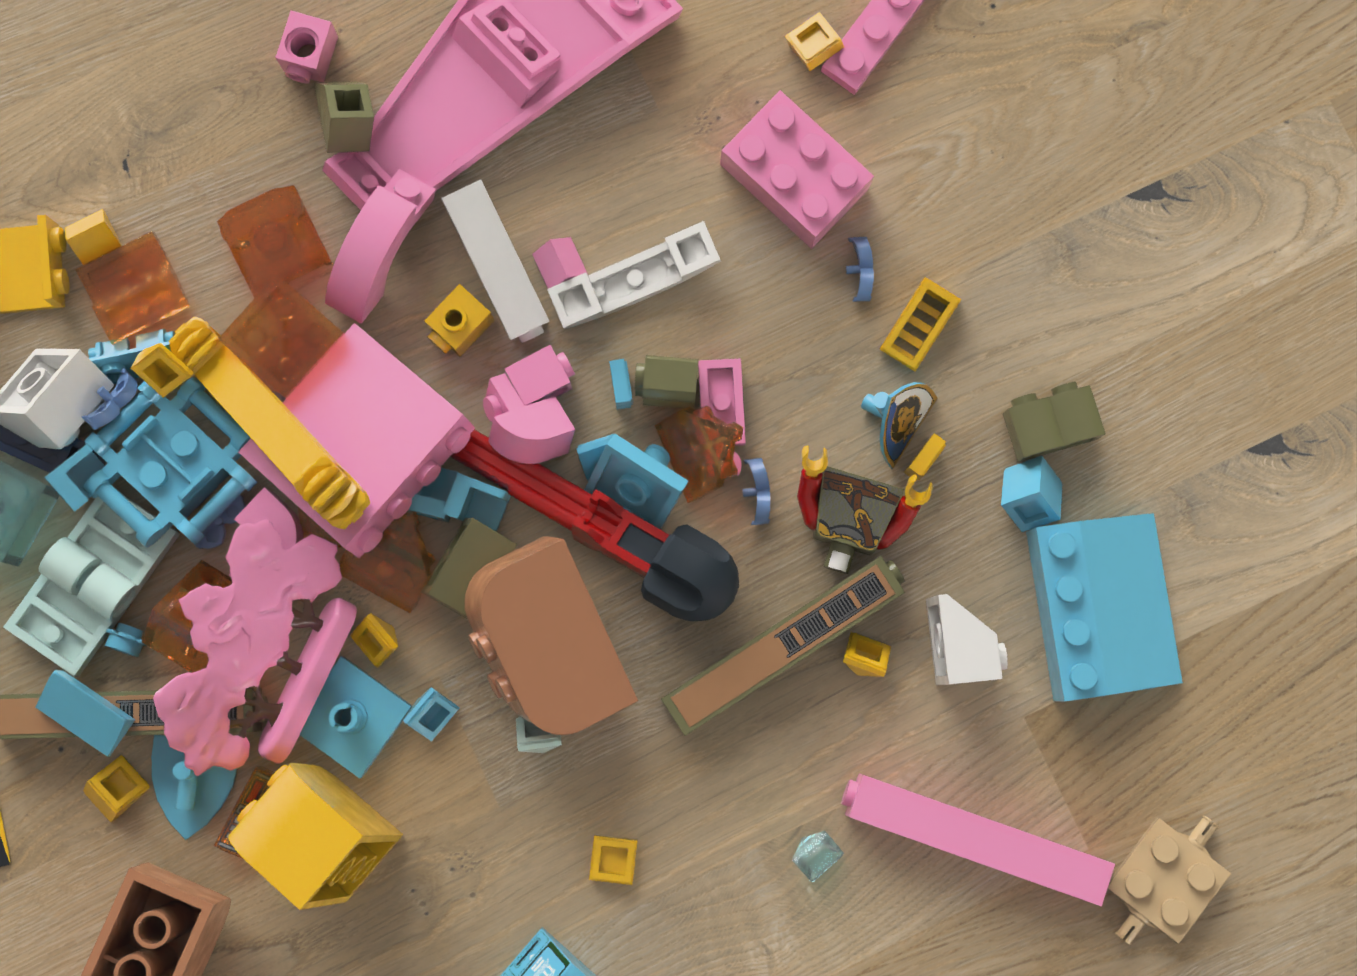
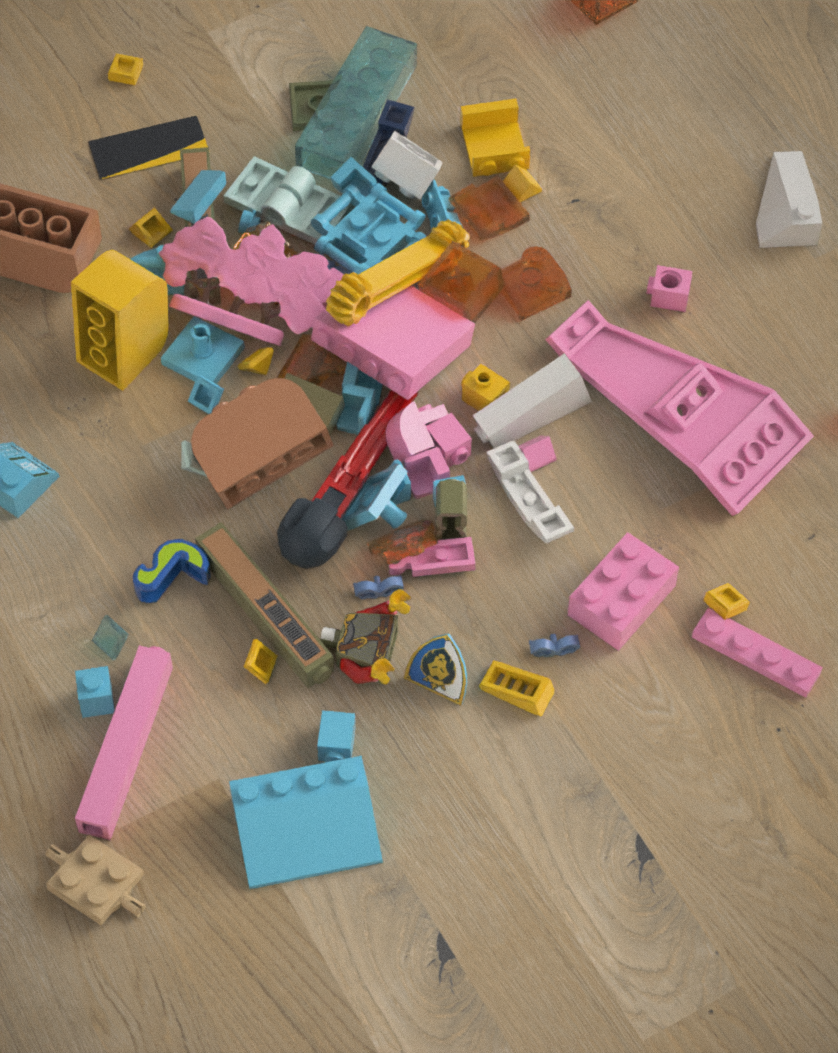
camera: 90 degrees right, 25 degrees down
(114, 401) = (407, 196): medium blue piece -> none
(161, 369) = (428, 214): yellow slope -> none
(345, 115) = (623, 306): olive slope -> none
(372, 243) = (535, 326): bright pink arch -> none
(589, 411) = (424, 469): none -> bright pink panel
(613, 859) = (106, 513): yellow tile -> none
(712, 779) = (167, 563): none -> blue animal
(905, 878) = (95, 692): none -> medium azure brick
(926, 457) = (411, 690): yellow tile -> none
(962, 644) = (270, 711): white slope -> none
(989, 560) = (336, 736): none -> medium azure brick
(1032, 494) = (390, 767): medium azure panel -> none
(1053, 422) = (446, 778): olive brick -> none

